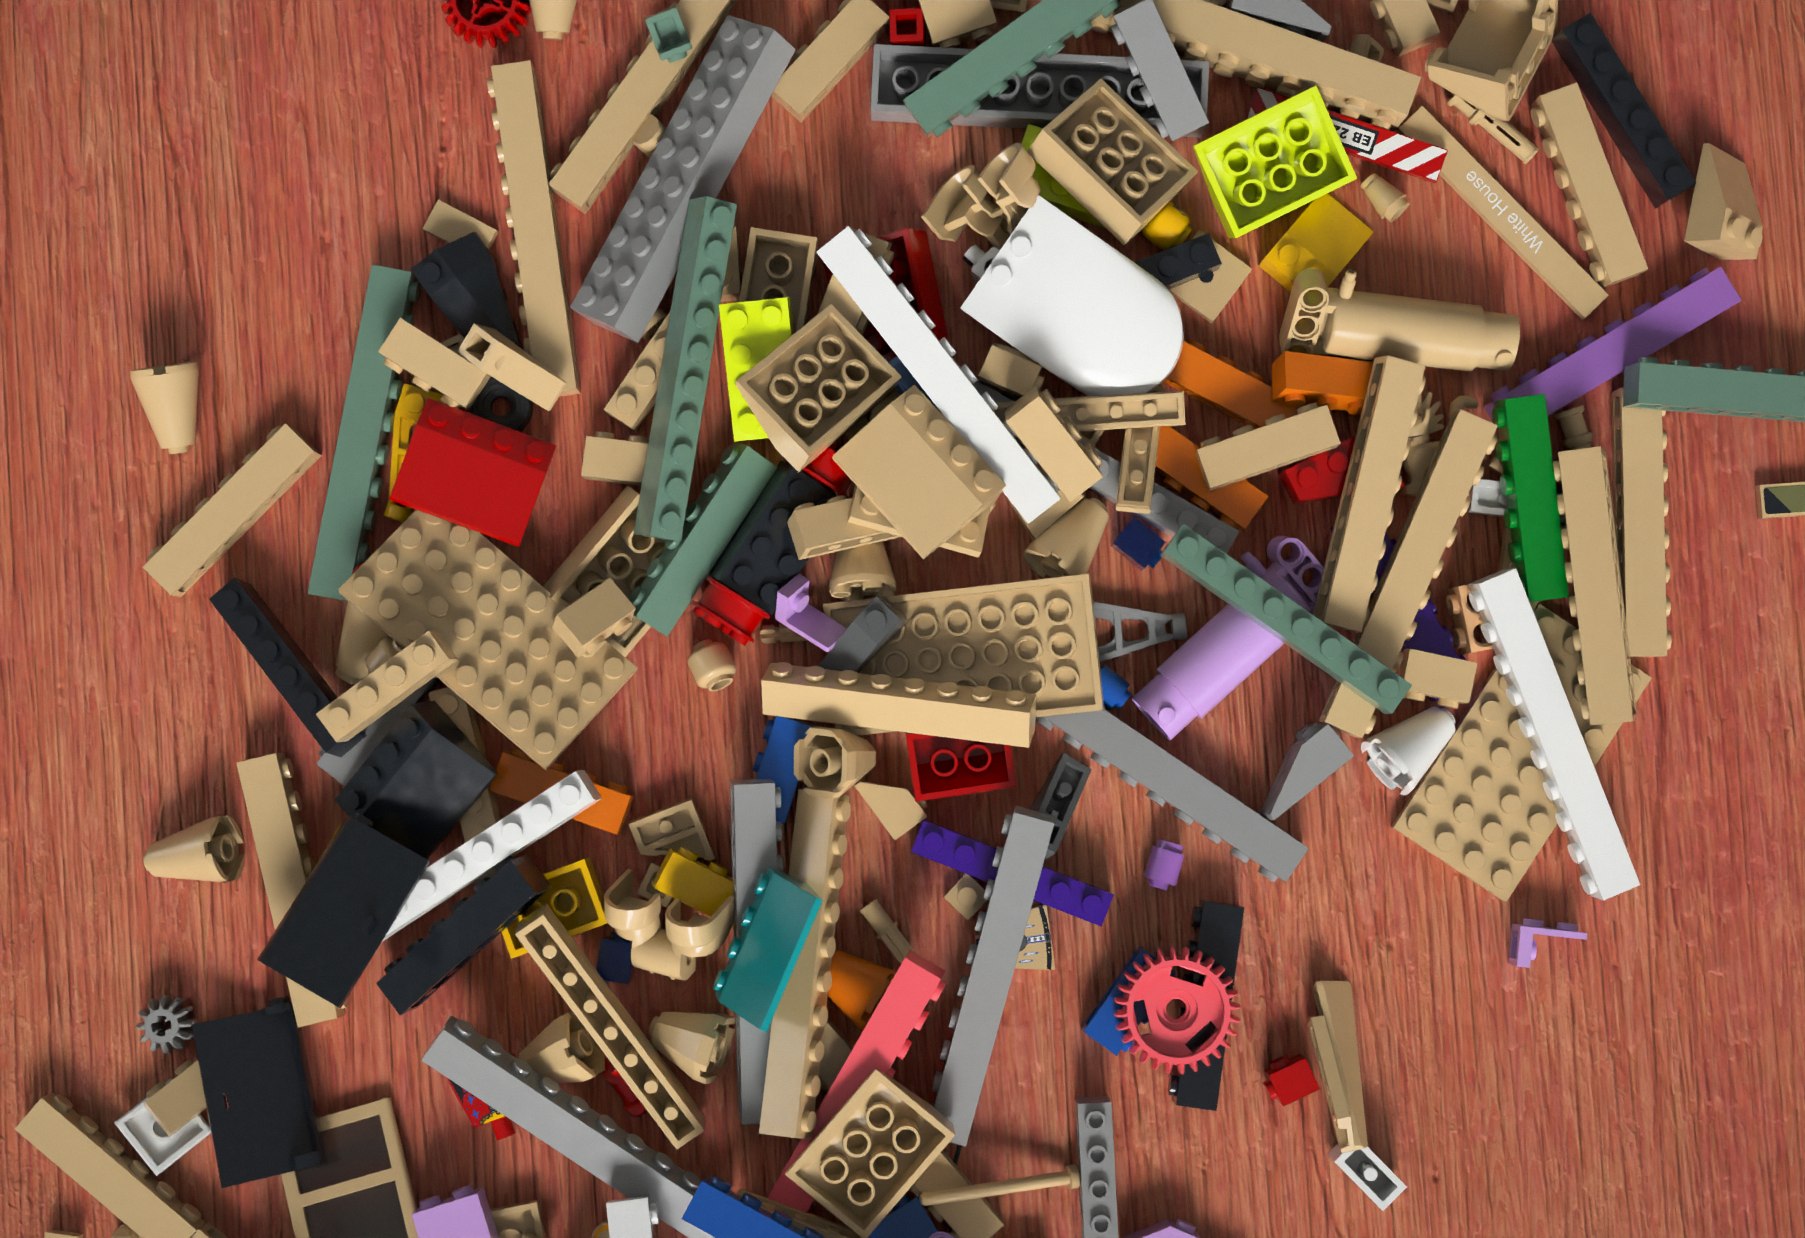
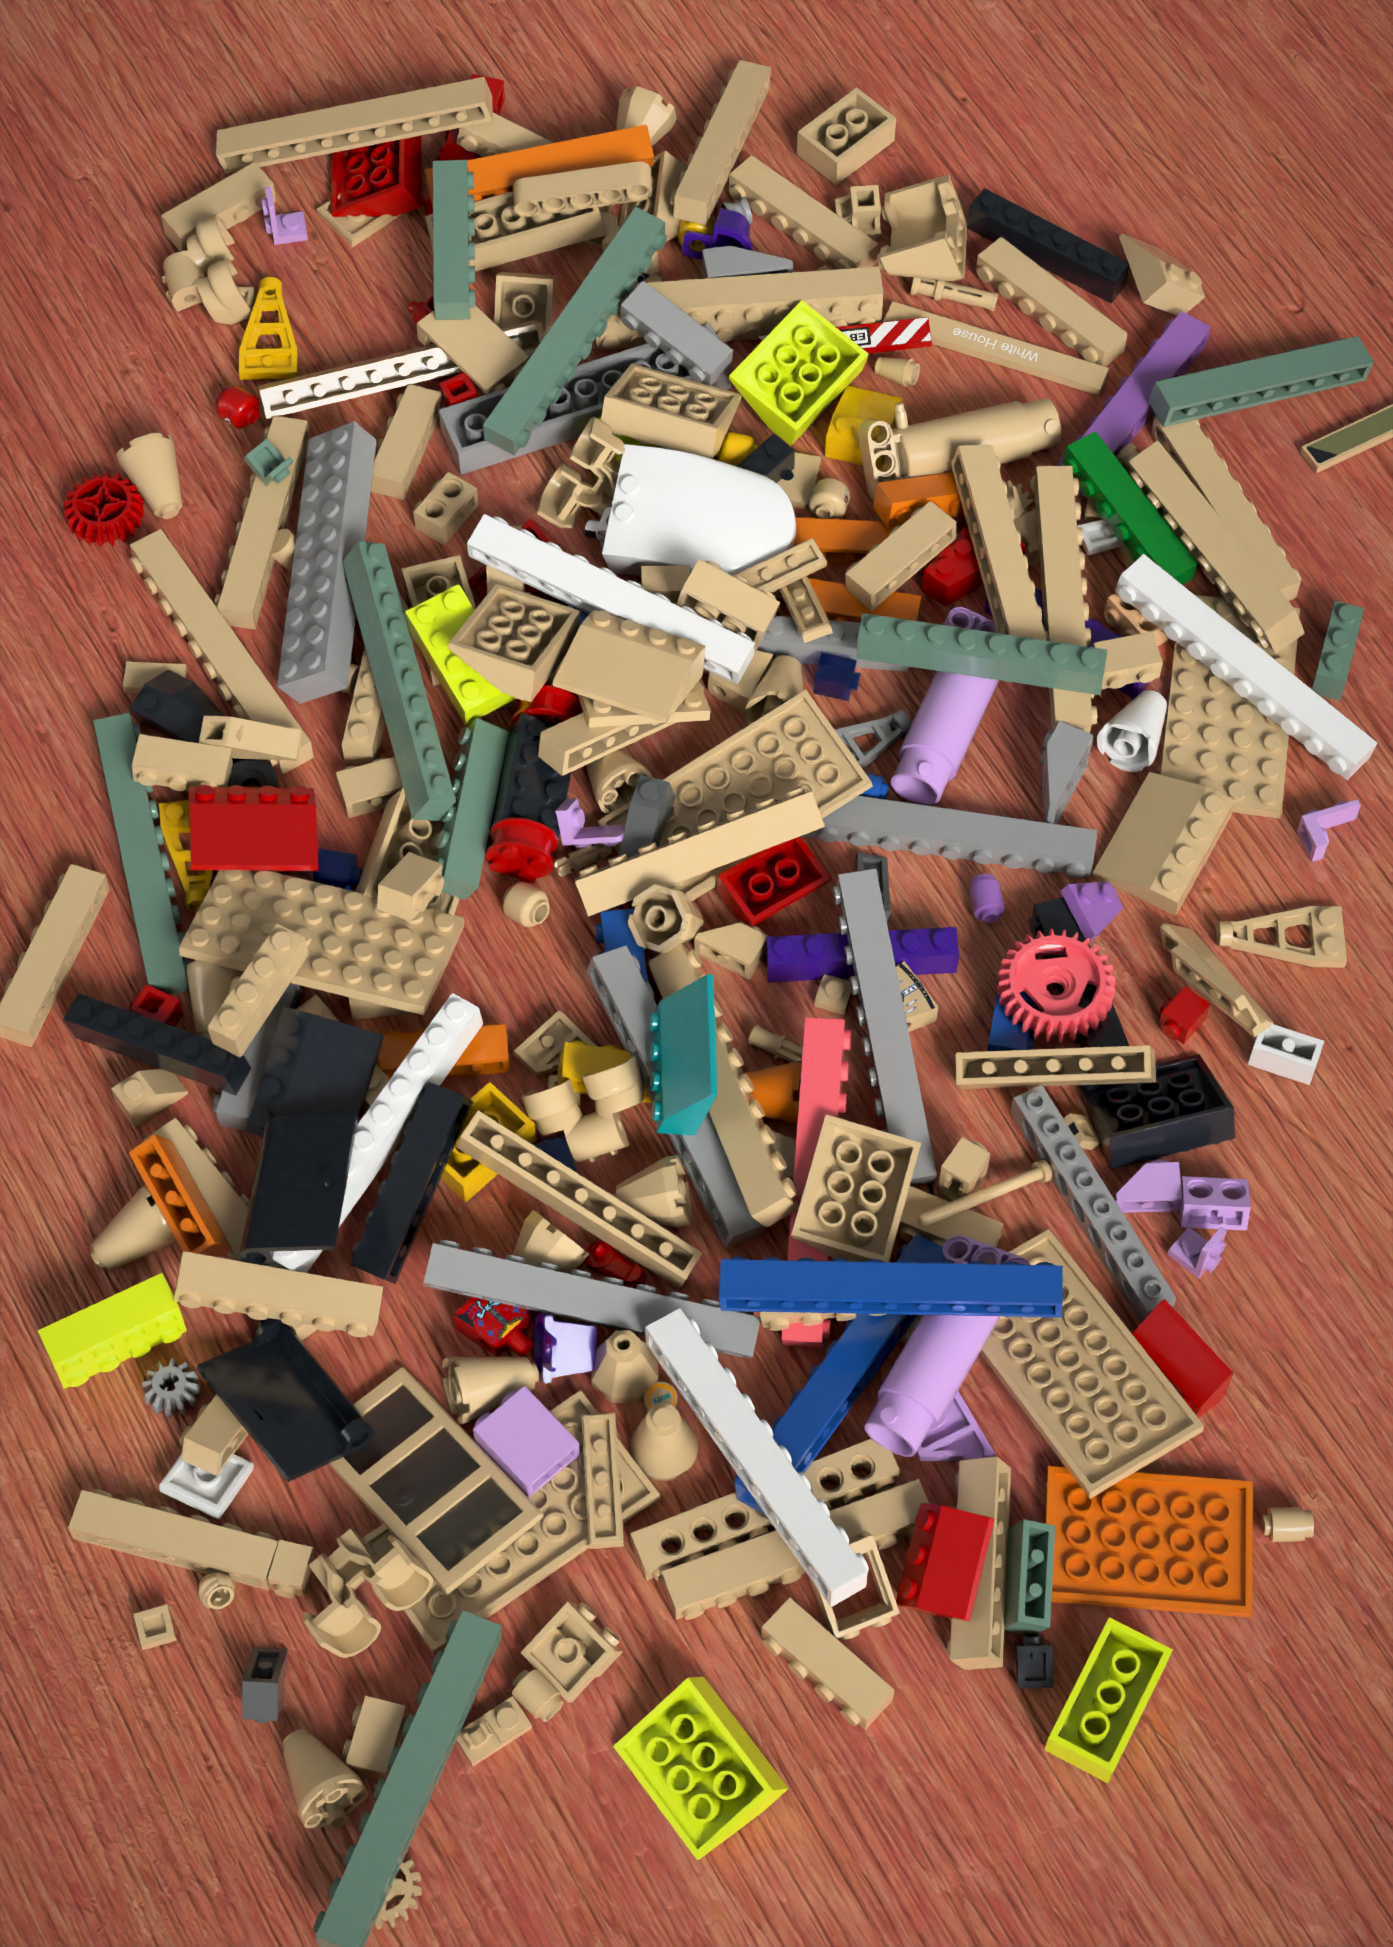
camera: 25 degrees left, 25 degrees down
(129, 951) = (113, 1331): none -> neon yellow brick
(237, 856) = (179, 1197): none -> orange brick
(258, 708) = (147, 1094): none -> tan slope
(273, 995) = (278, 1294): none -> tan brick
(294, 616) = (152, 1000): none -> red brick
(453, 1158) = (481, 1383): none -> tan cone
(533, 1163) = (562, 1347): none -> container
(545, 544) = (337, 869): none -> clear blue brick
(583, 1196) = (624, 1368): none -> tan cone
(841, 166) = (450, 502): none -> tan brick
(993, 1156) = (963, 1170): none -> tan brick
(1129, 1155) = (1082, 1130): none -> tan plate
(1132, 1095) = (1055, 1067): none -> tan brick
(1213, 1166) = (1159, 1117): none -> black slope
(1233, 329) = (829, 499): none -> tan head
(1261, 929) = (1092, 906): none -> medium lavender wing
(1370, 885) = (1165, 840): none -> tan slope
(1476, 1054) = (1326, 936): none -> tan plate
(1662, 748) = (1337, 650): none -> sand green brick

